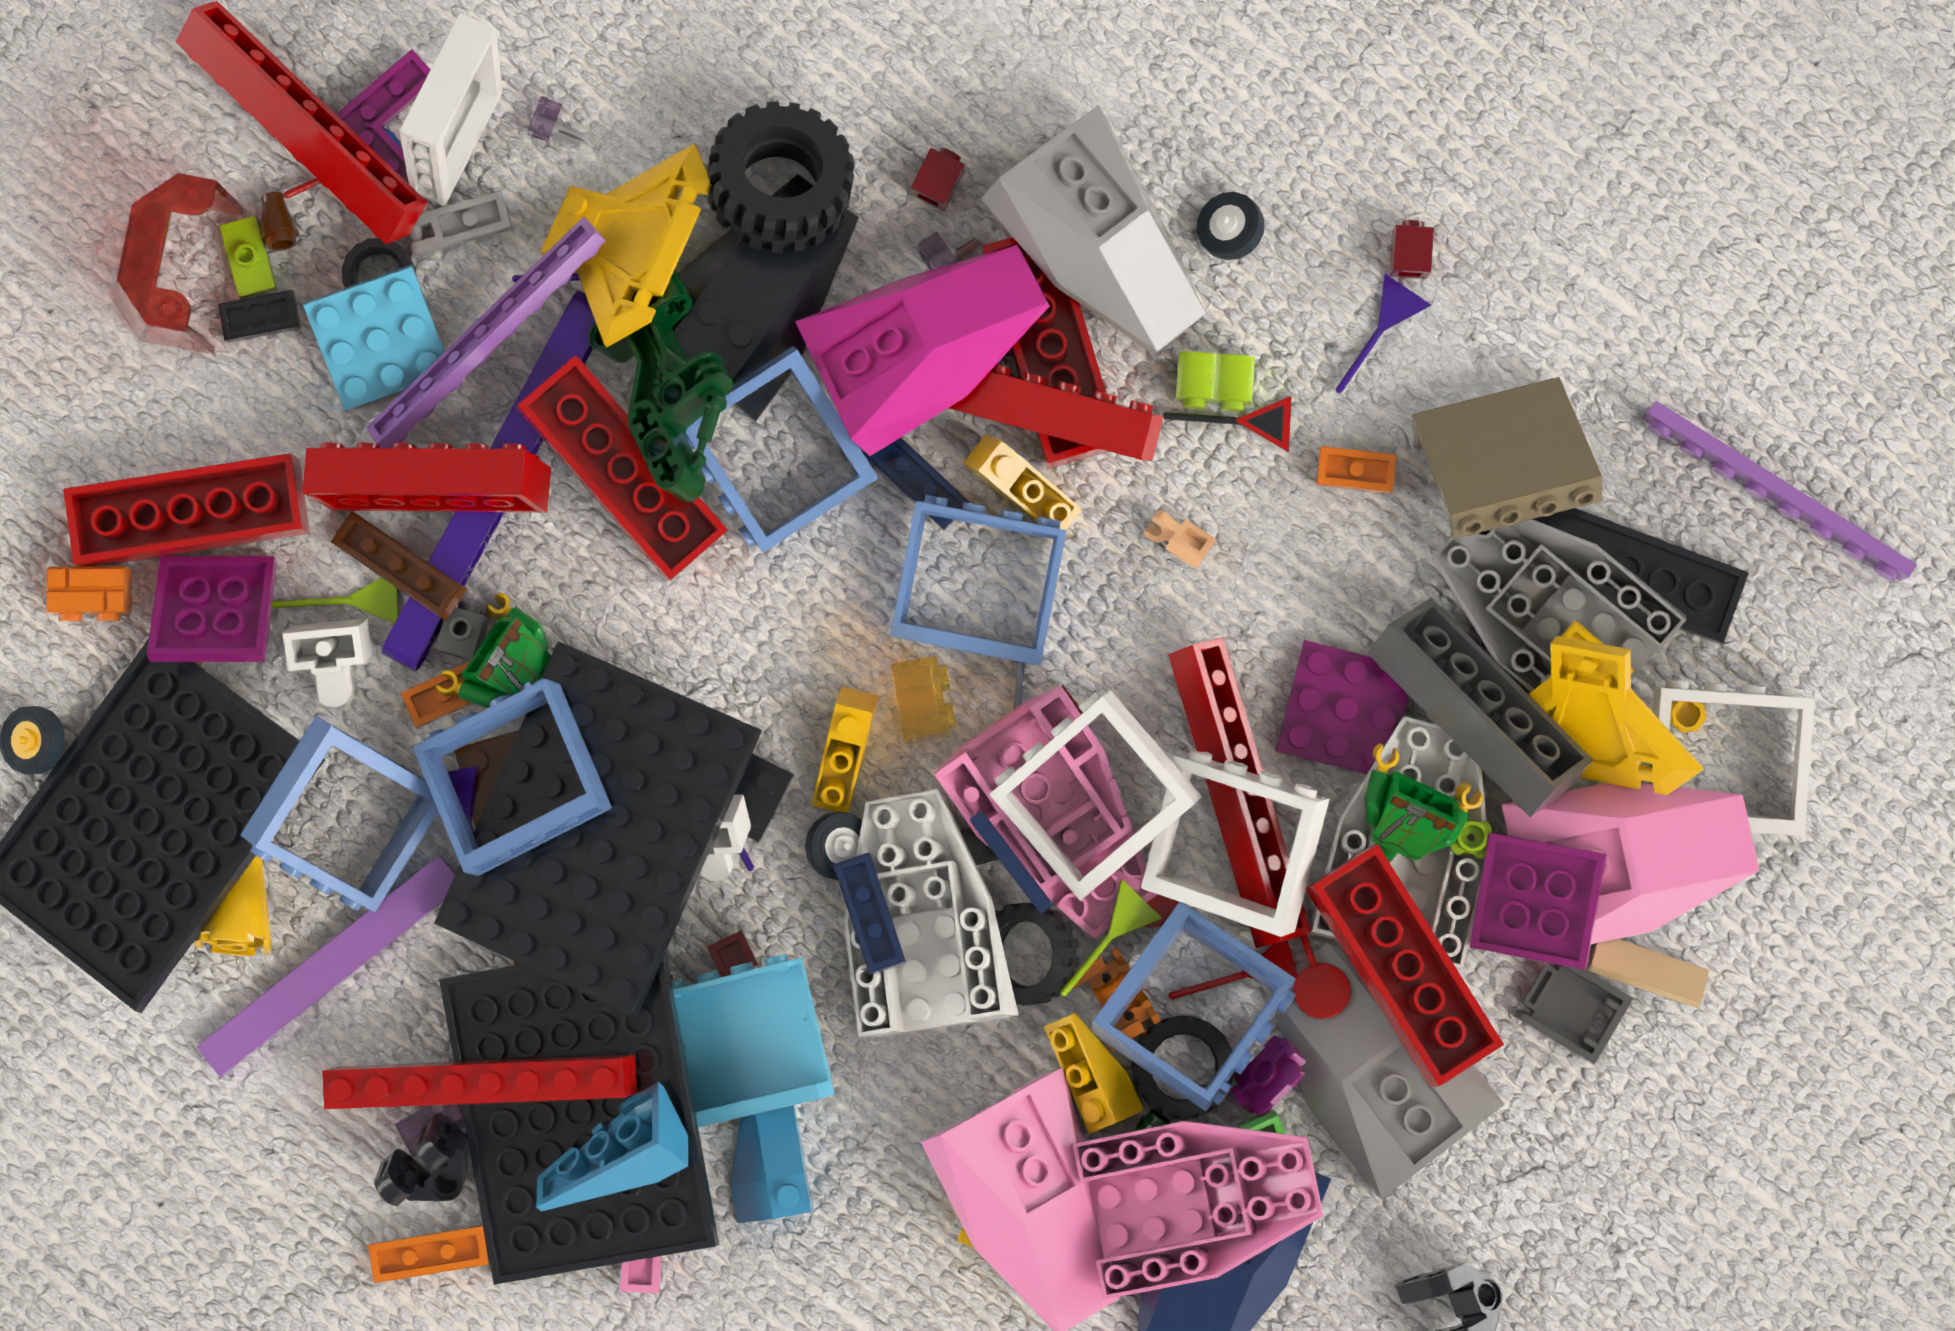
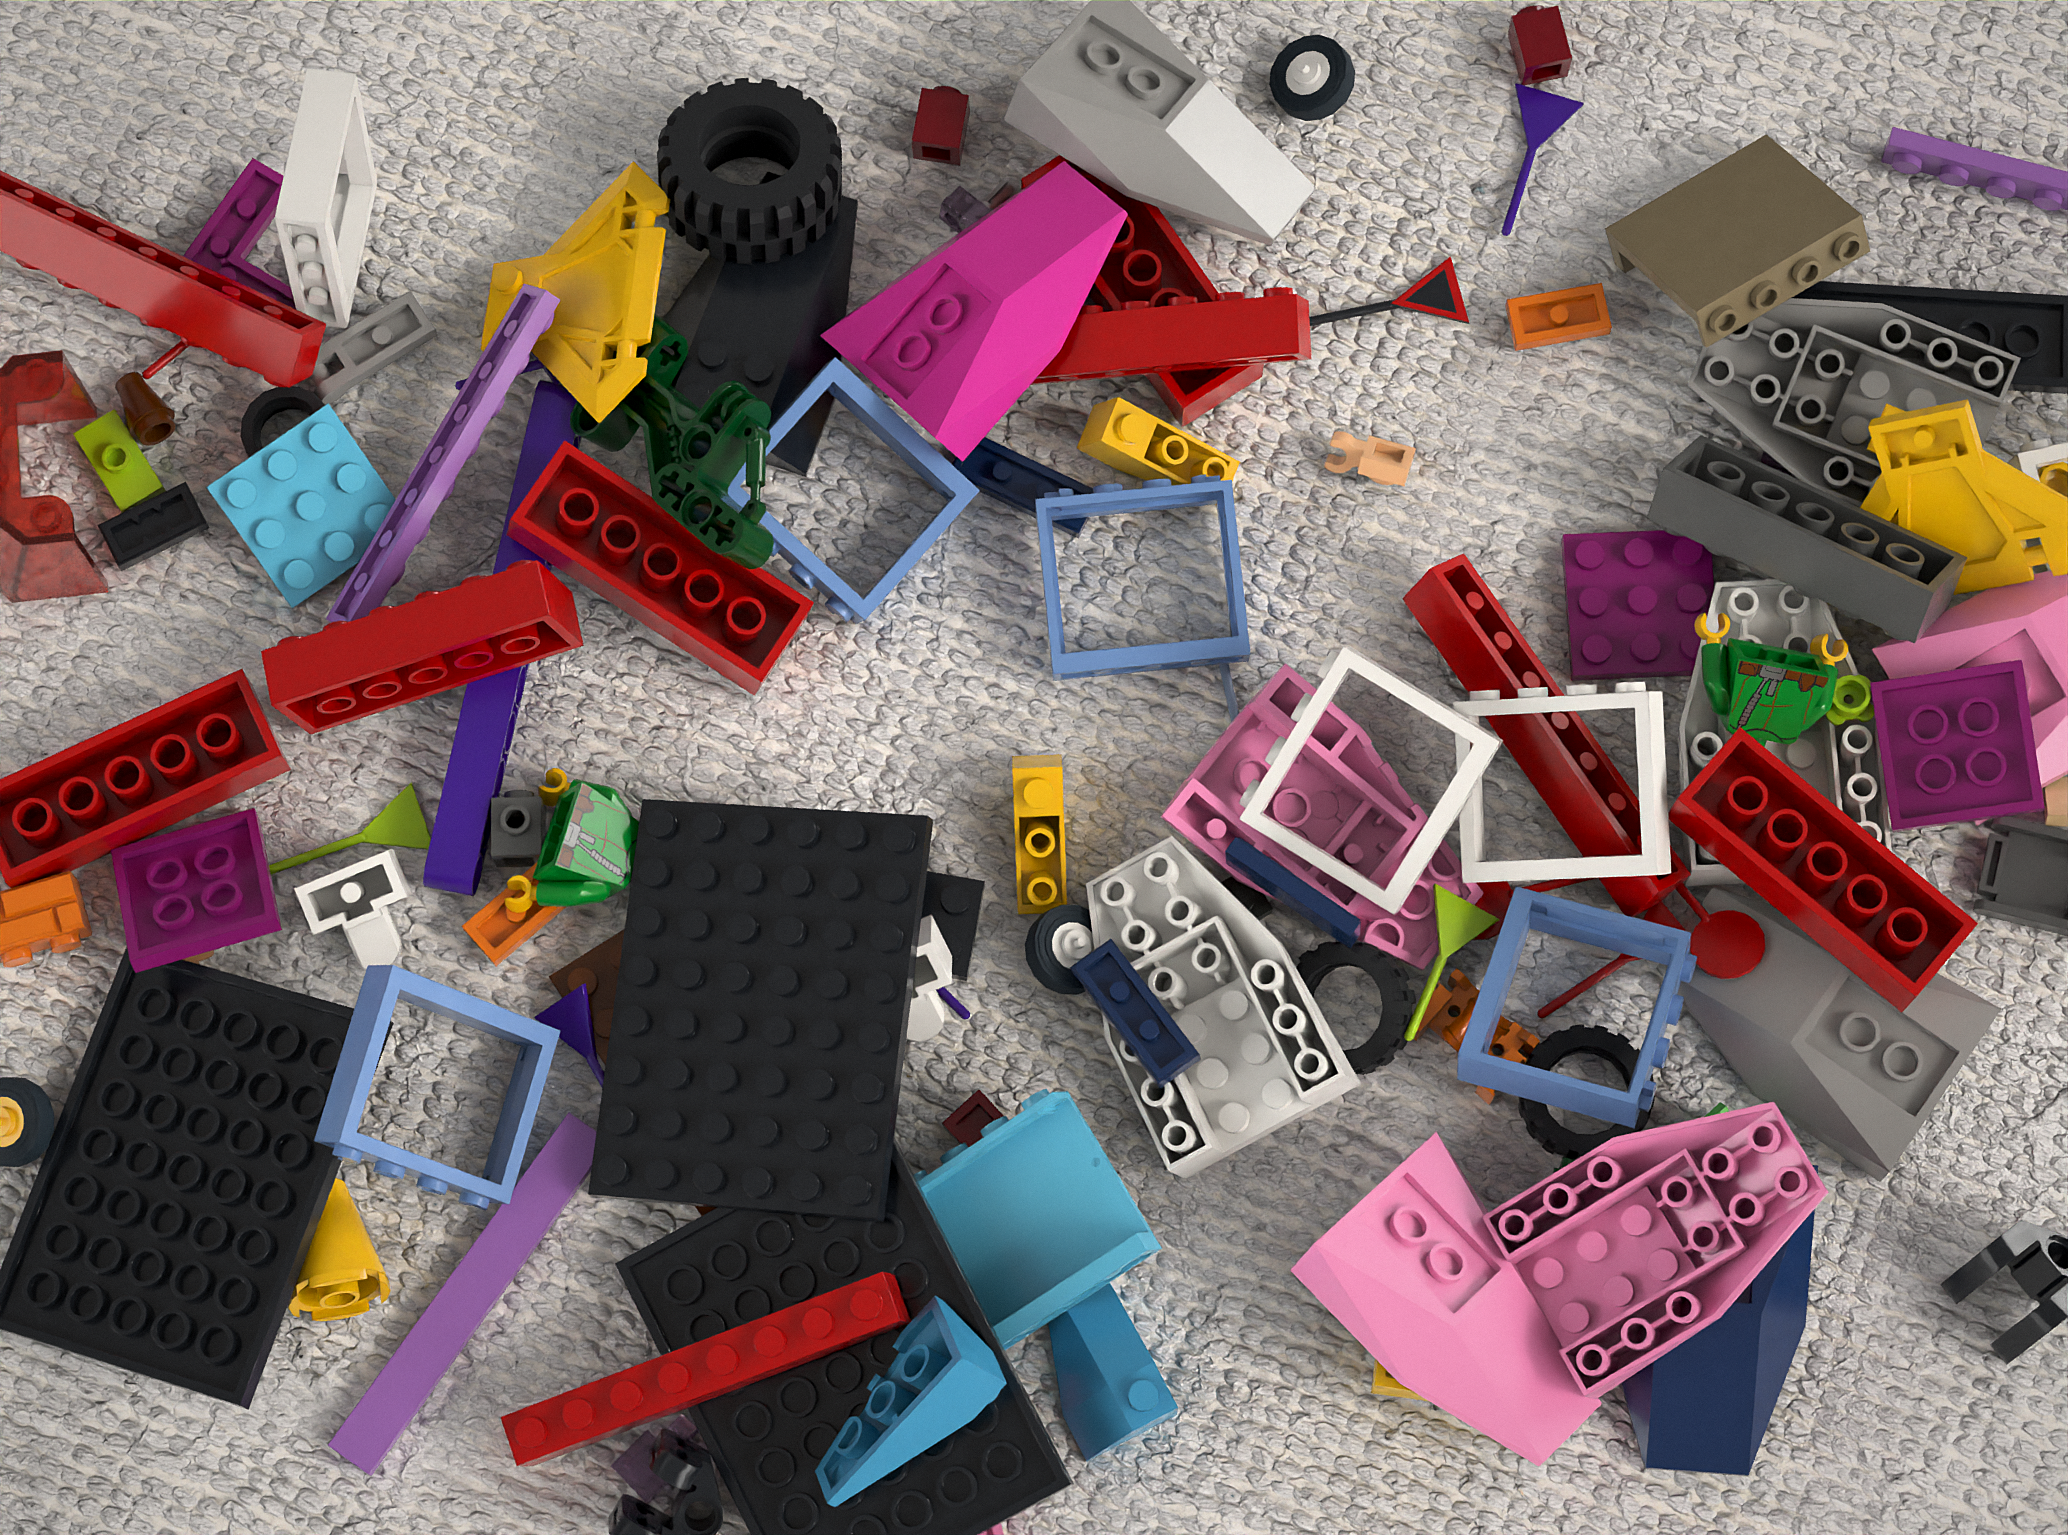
camera: 15 degrees left, 10 degrees down
(399, 565) = (415, 769): reddish brown tile -> none
(474, 725) = (687, 1029): medium blue window -> none
(545, 126) = (442, 203): clear purple piece -> none
(921, 699) = (1117, 738): clear yellow brick -> none
(1093, 1075) = (1477, 1132): yellow slope -> none
(1214, 379) = (1352, 261): lime brick -> none
(1269, 1076) = (1697, 1067): magenta piece -> none

